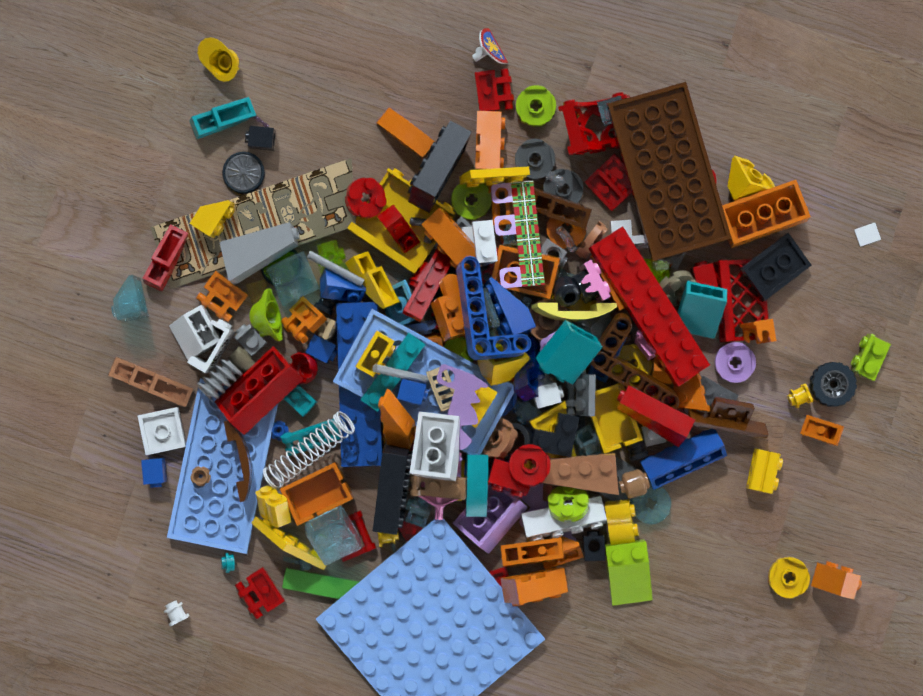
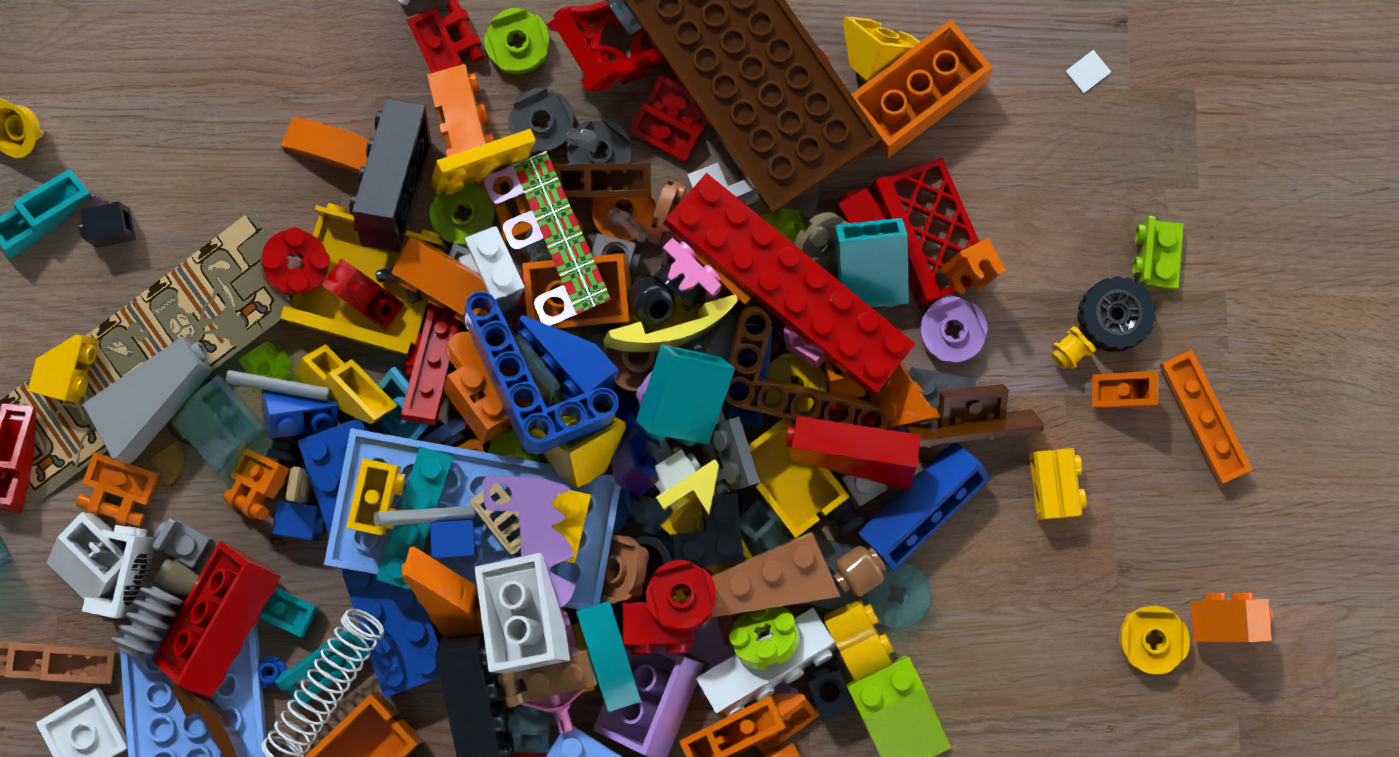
camera: 15 degrees left, 5 degrees down
(243, 172) = (96, 287): flat silver wheel -> none
(266, 316) = (196, 496): lime hat -> none
(305, 365) = (281, 556): red hair -> none
(561, 406) = (700, 482): none -> light yellow slope
(775, 266) = (965, 163): black plate -> none
(863, 460) = (1205, 417): none -> orange plate

